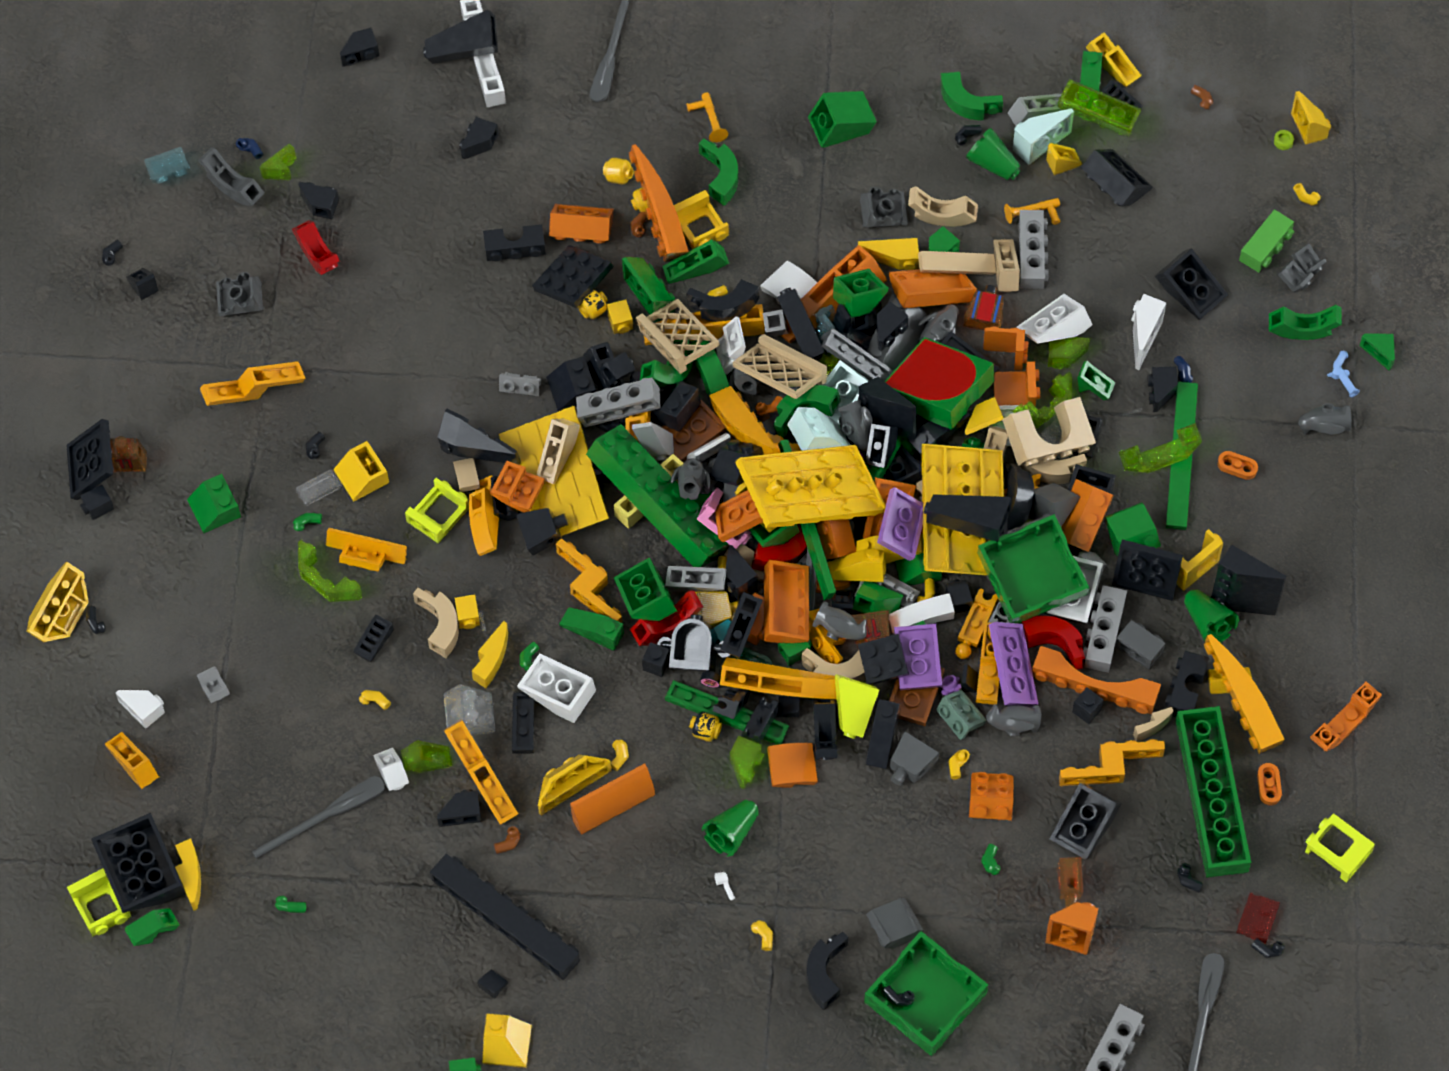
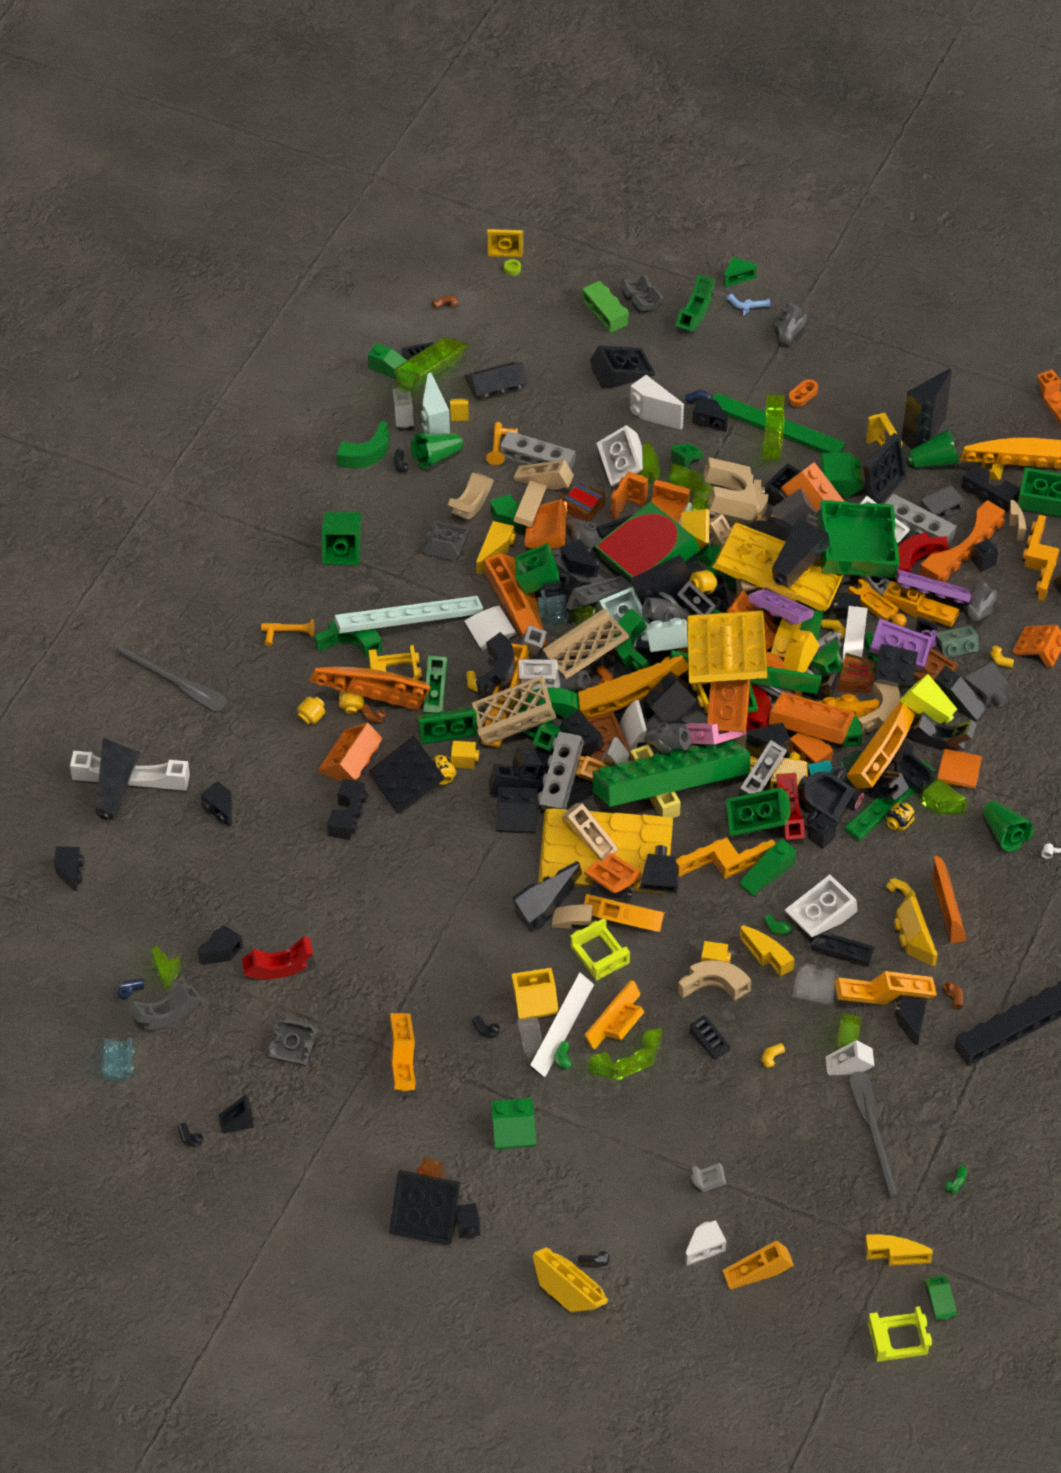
camera: 70 degrees left, 10 degrees down
(138, 865) = (876, 1283): black slope -> none
(342, 508) = (562, 1024): none -> white sticker
(521, 385) = (498, 846): light grey hinge -> none
(741, 624) = (821, 748): black slope -> none
(765, 207) = (408, 614): none -> light aqua plate
(801, 324) = (553, 620): black slope -> none
(839, 623) = (848, 685): dark grey animal -> none
(908, 446) = (704, 581): none -> yellow head
(1114, 60) = (395, 340): yellow slope -> none
(1304, 197) = (573, 270): yellow arm -> none

